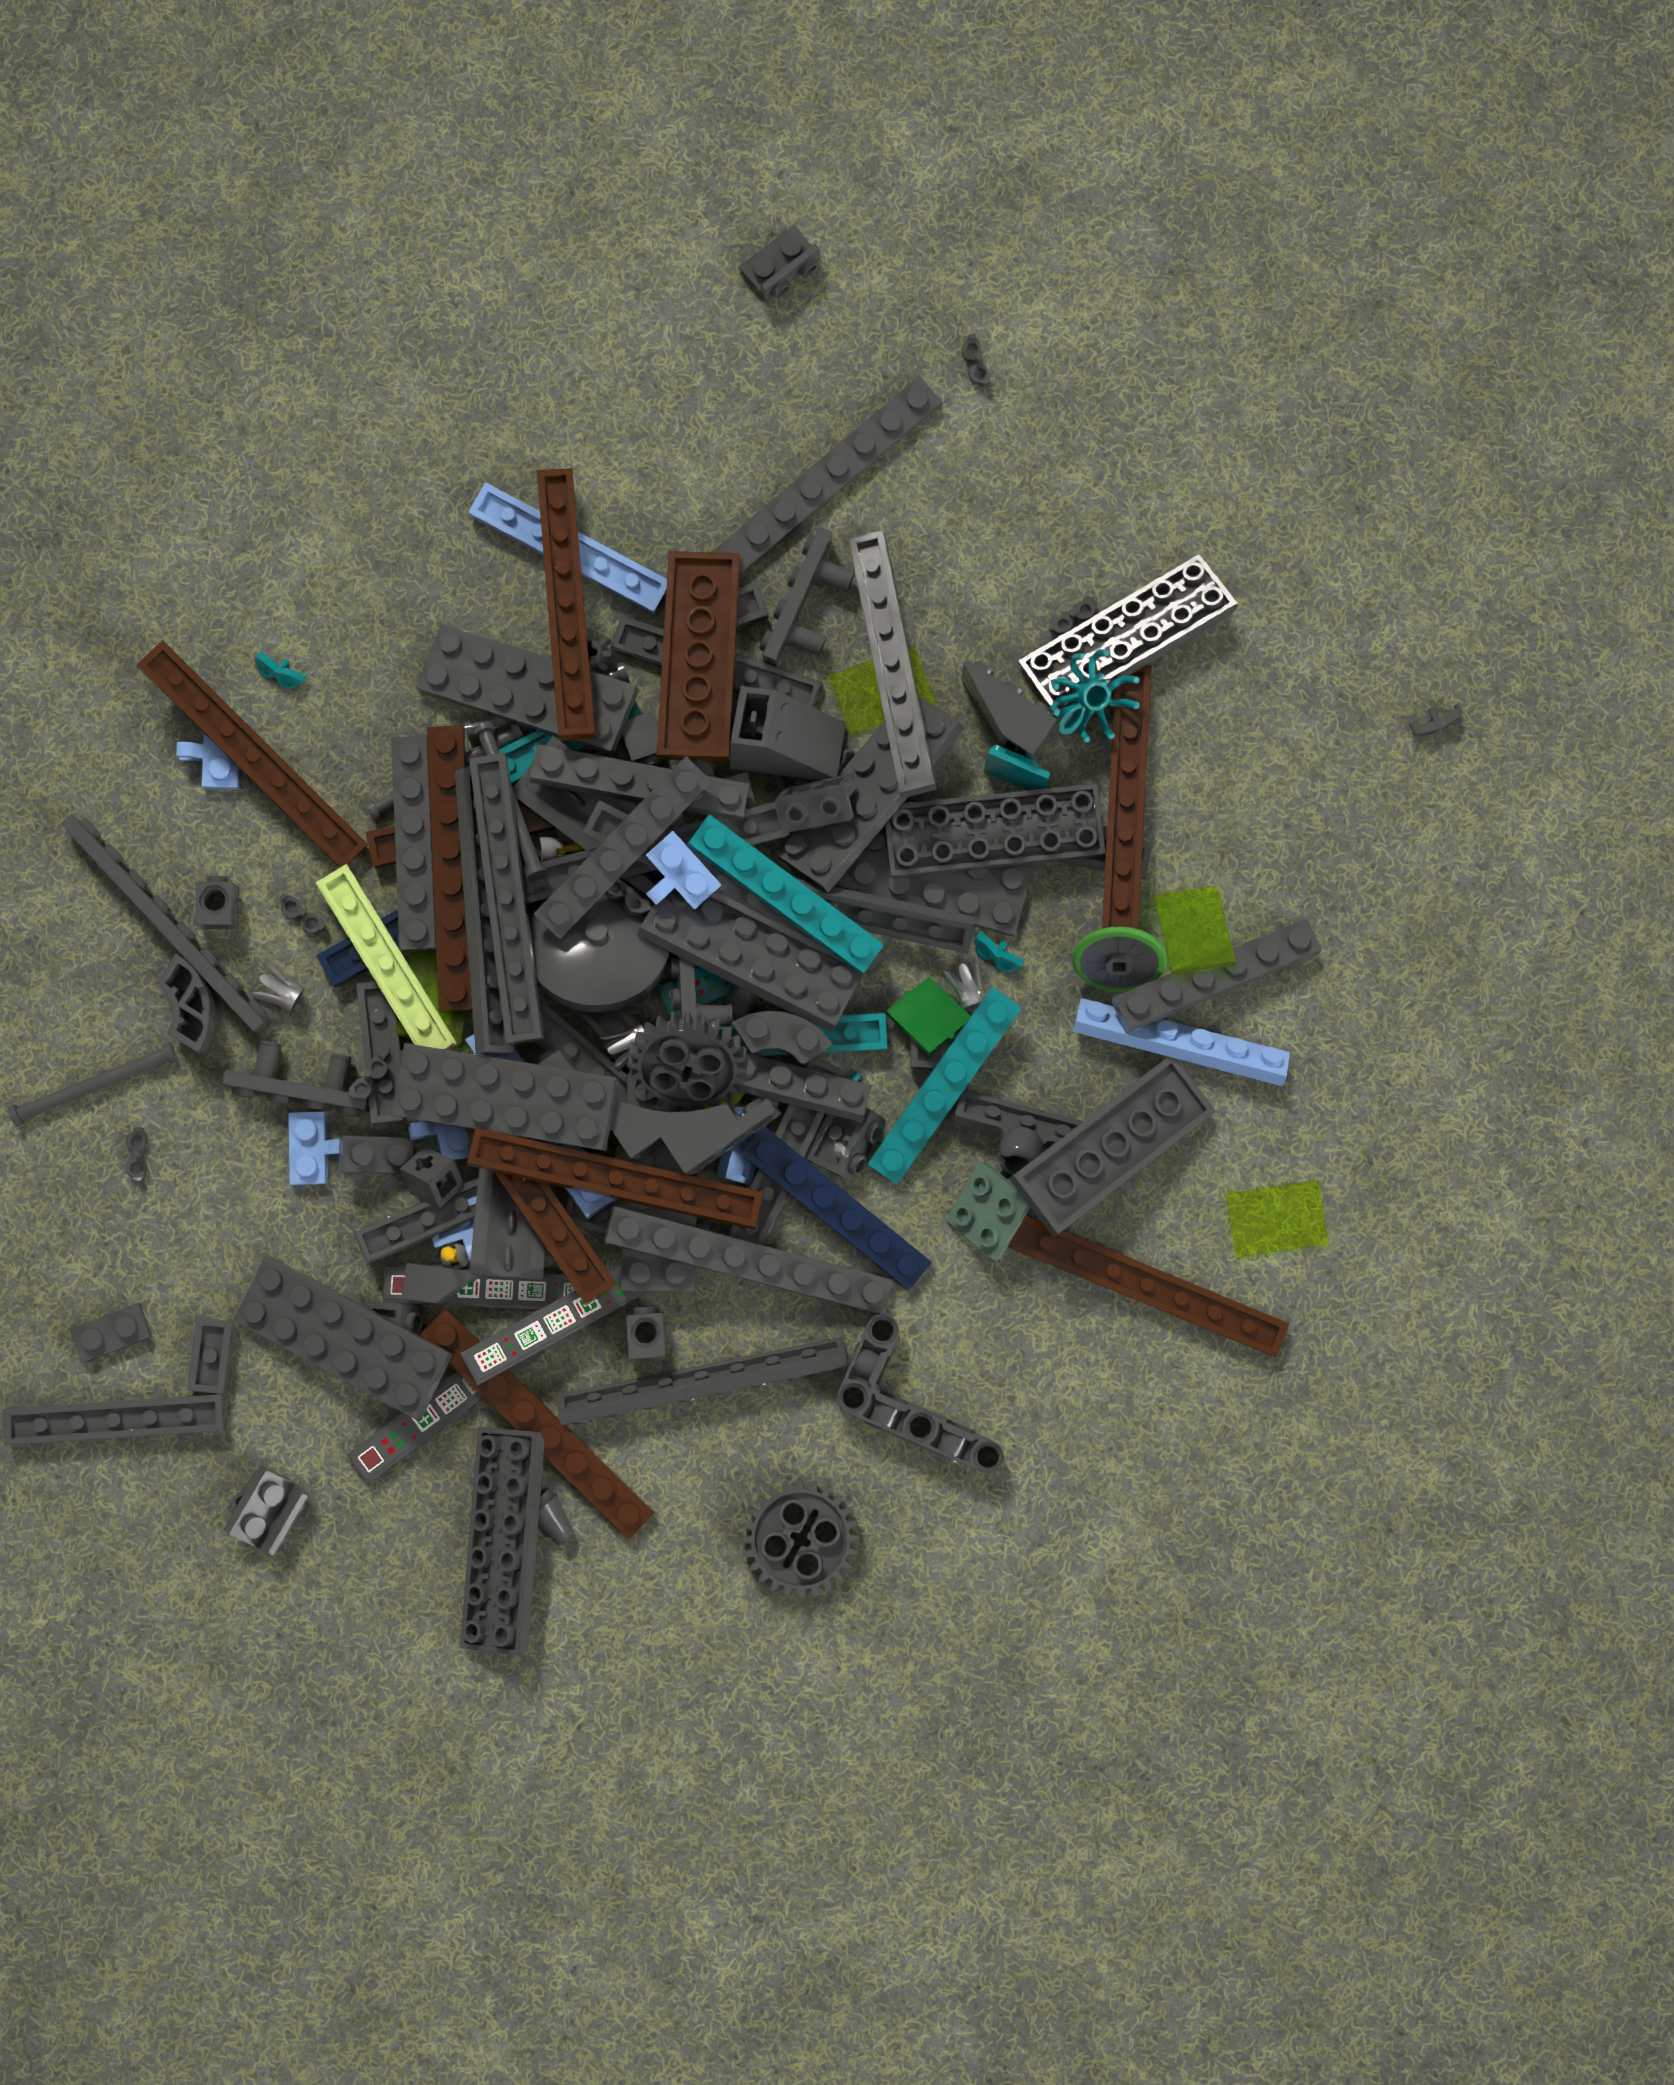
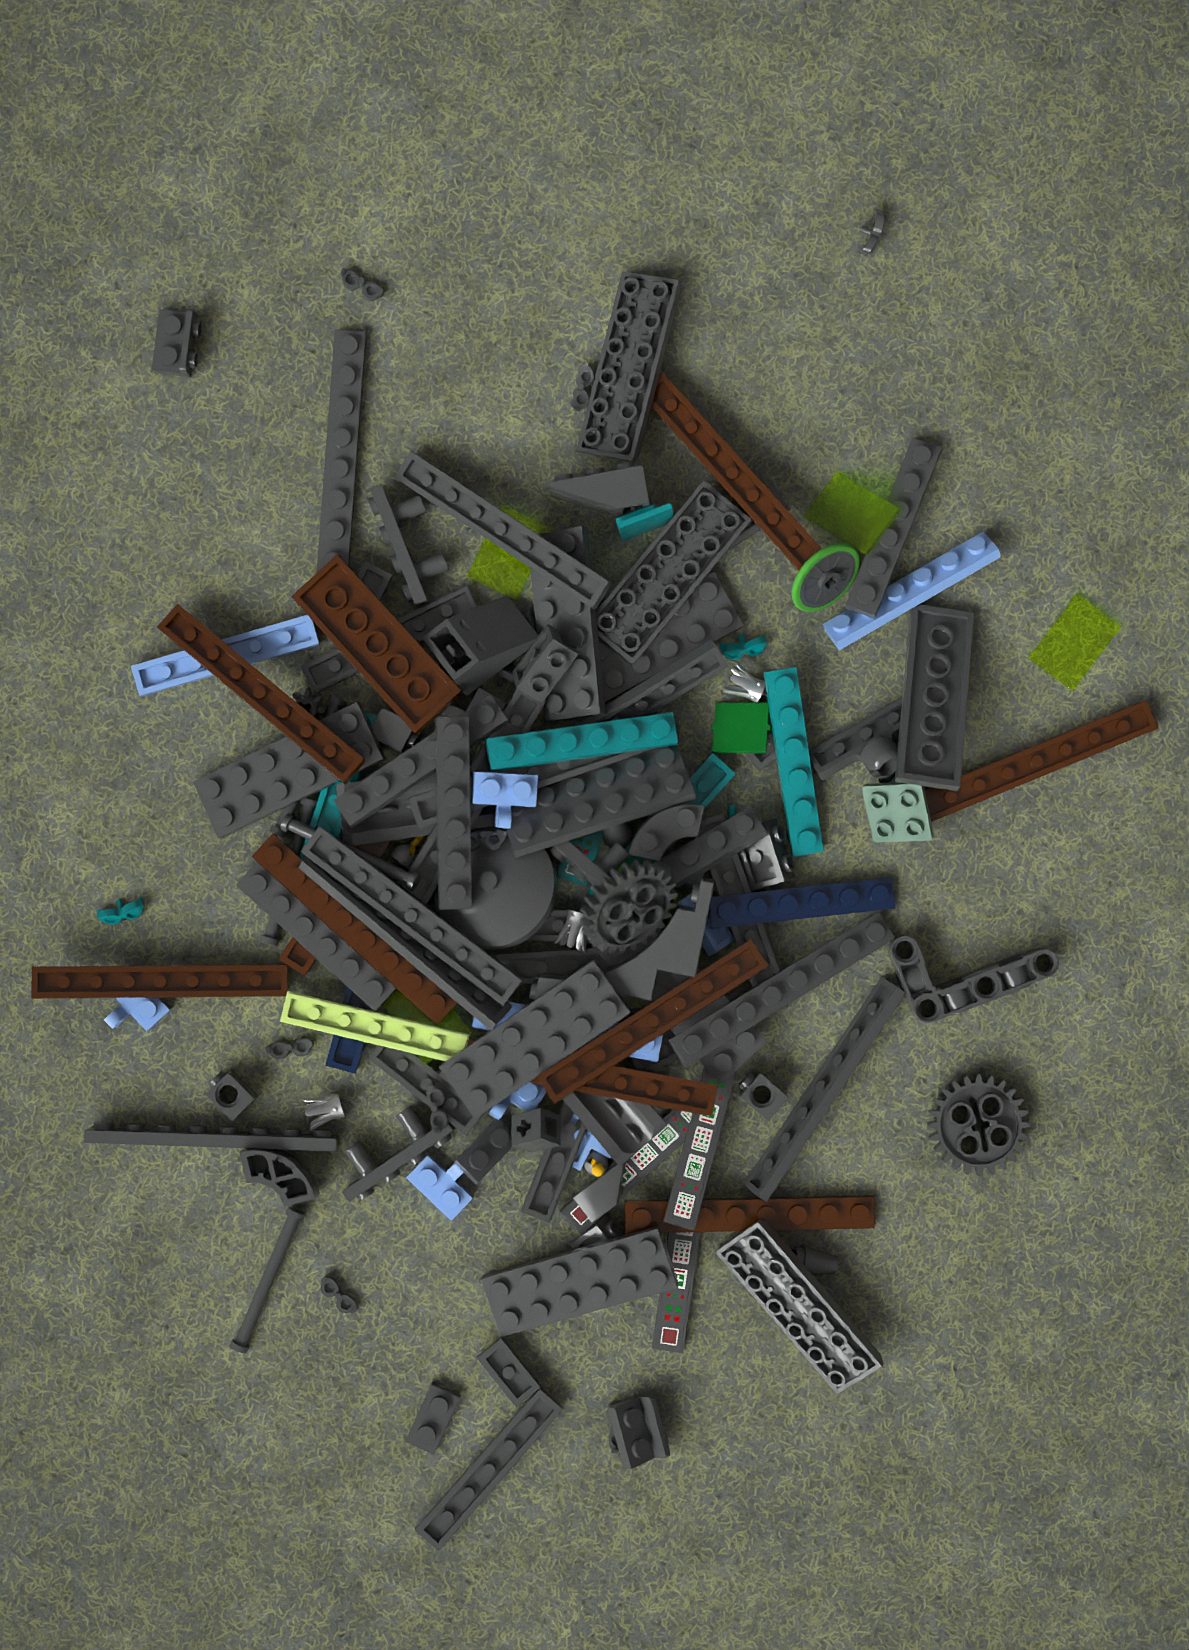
camera: 45 degrees left, 5 degrees up
(1091, 695) = (647, 428): teal animal -> none

